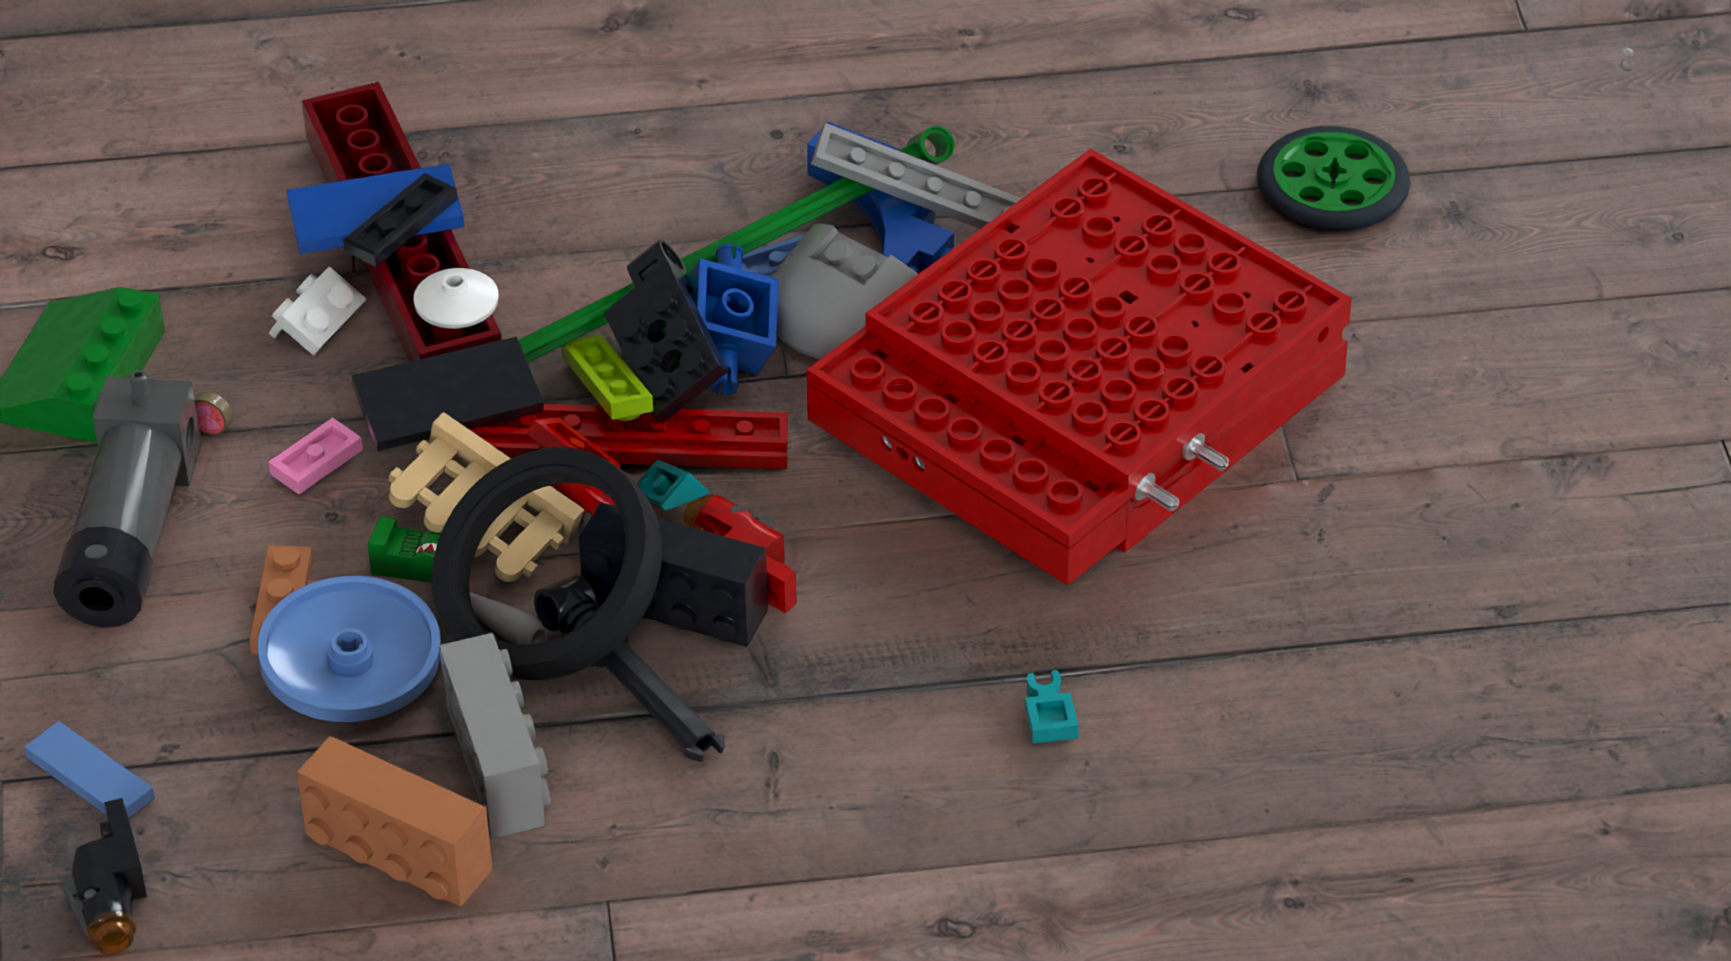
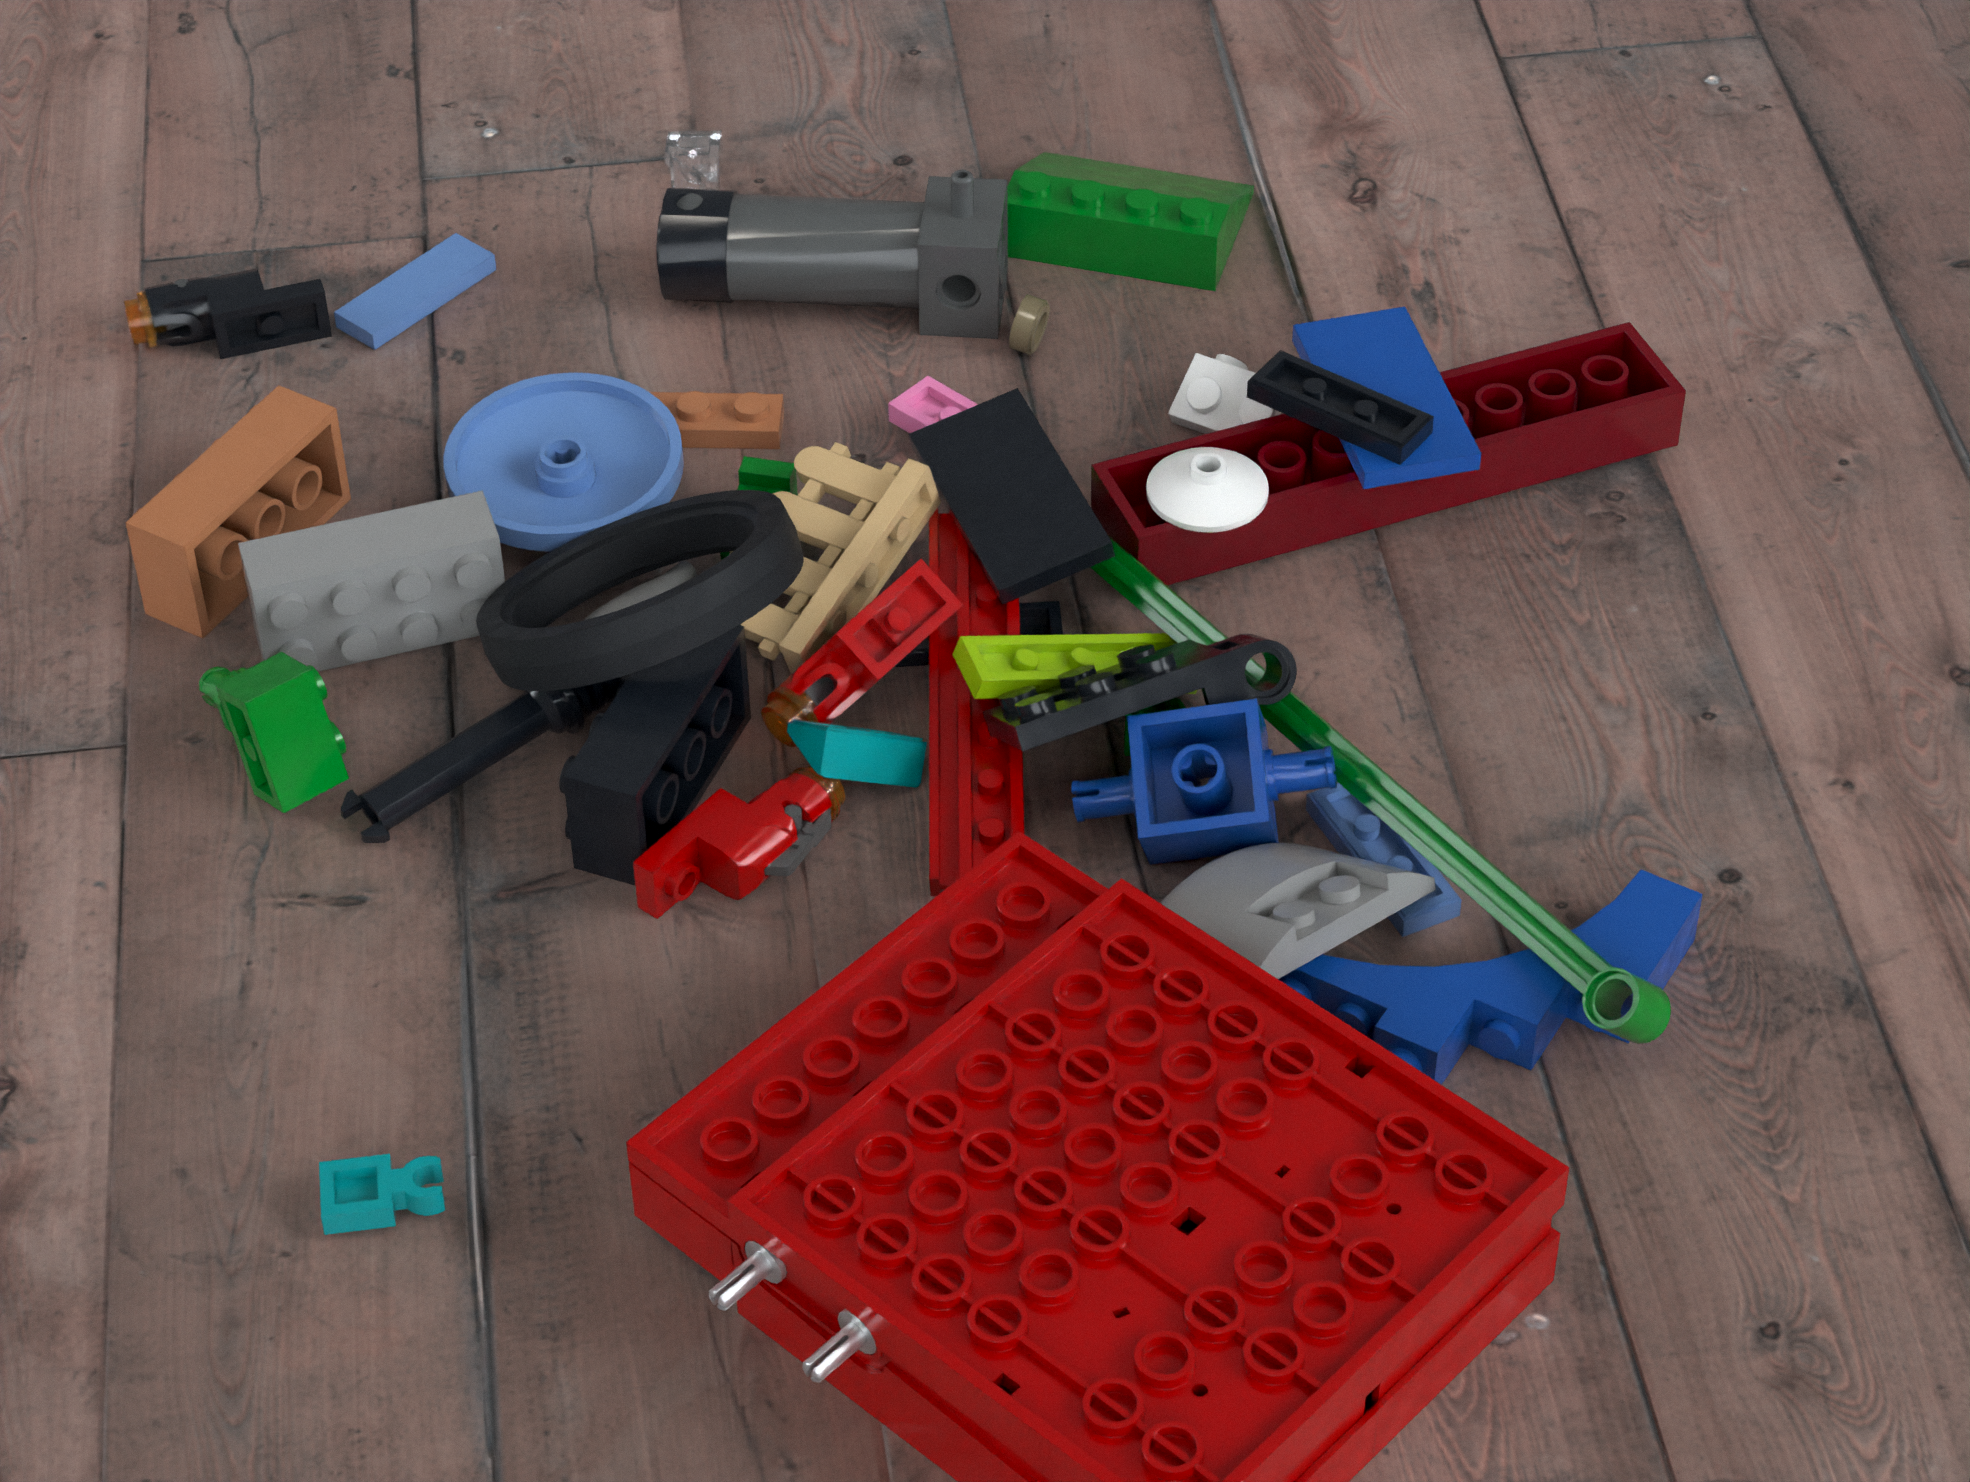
camera: 90 degrees right, 0 degrees up
(637, 776) = (279, 728): none -> green brick
(909, 177) = (1523, 971): light grey plate -> none

